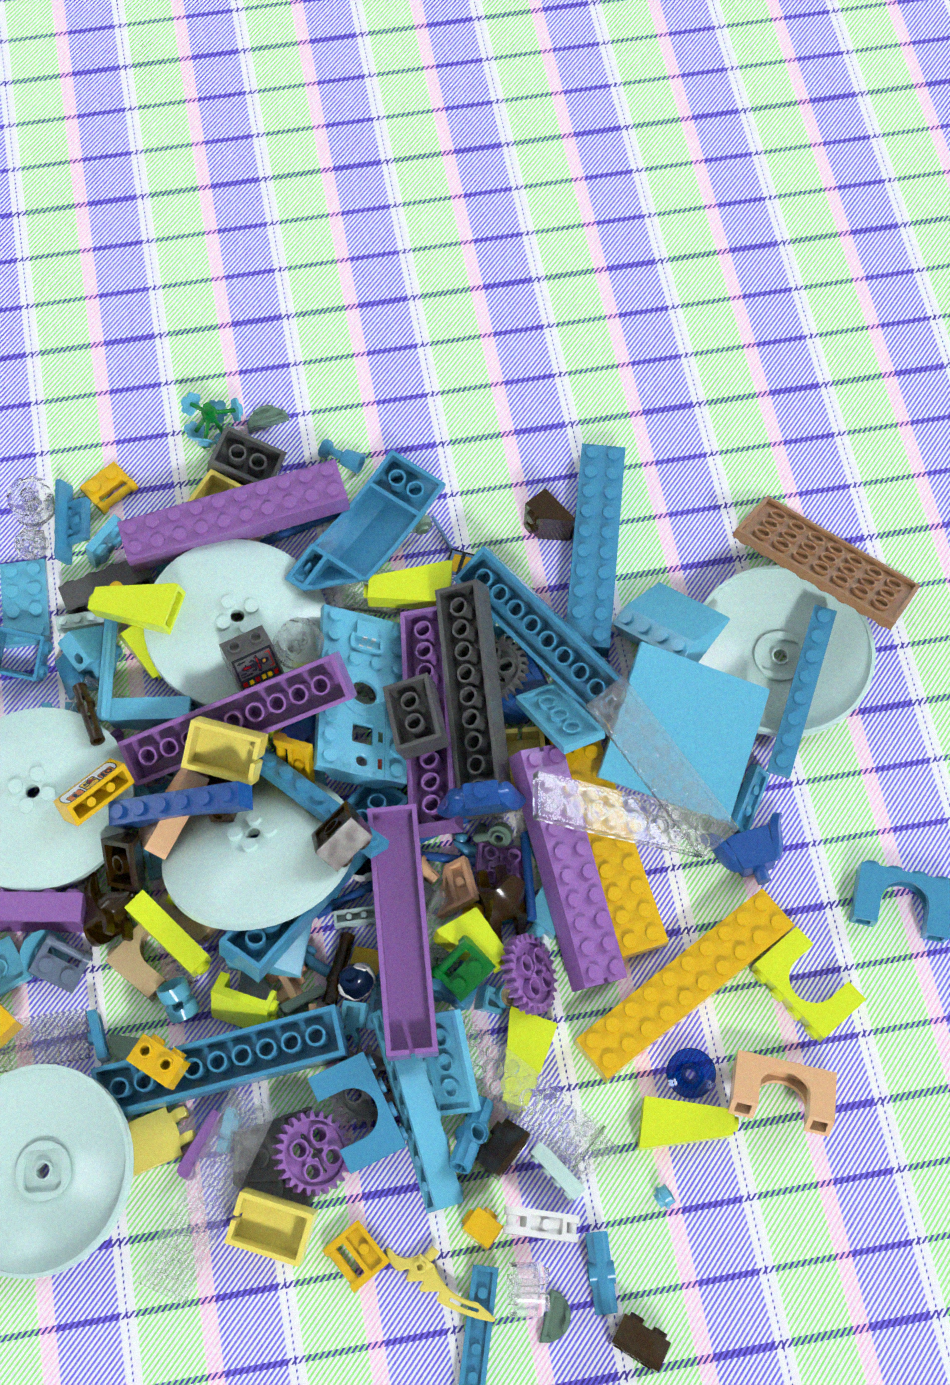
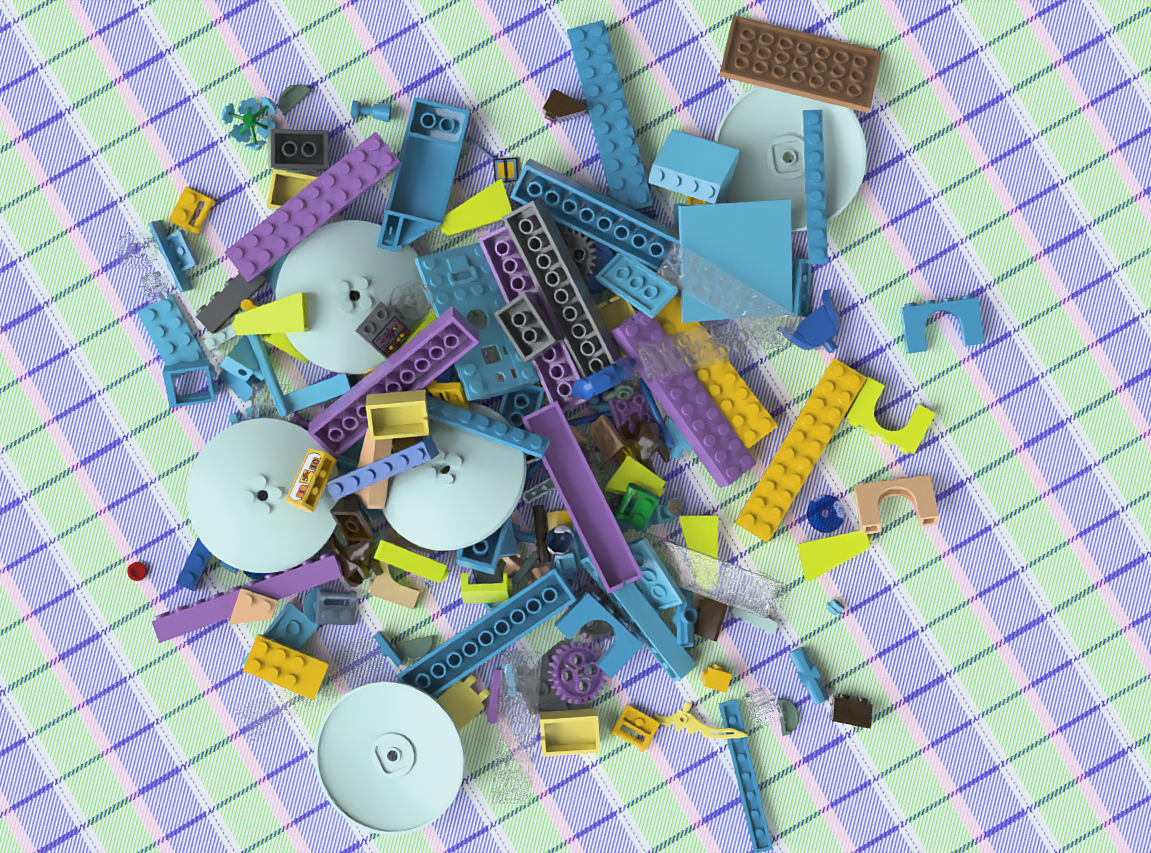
camera: 20 degrees left, 20 degrees up
(81, 694) = (259, 401): dark brown pin -> none
(103, 543) = (218, 256): medium azure plate -> none
(158, 1061) = (445, 654): yellow brick -> none
(178, 1000) = (435, 602): medium azure wheel -> none
(341, 836) = (514, 451): slope -> none
(529, 974) = (684, 488): medium lavender gear -> none
(541, 1224) = (757, 661): white plate -> none

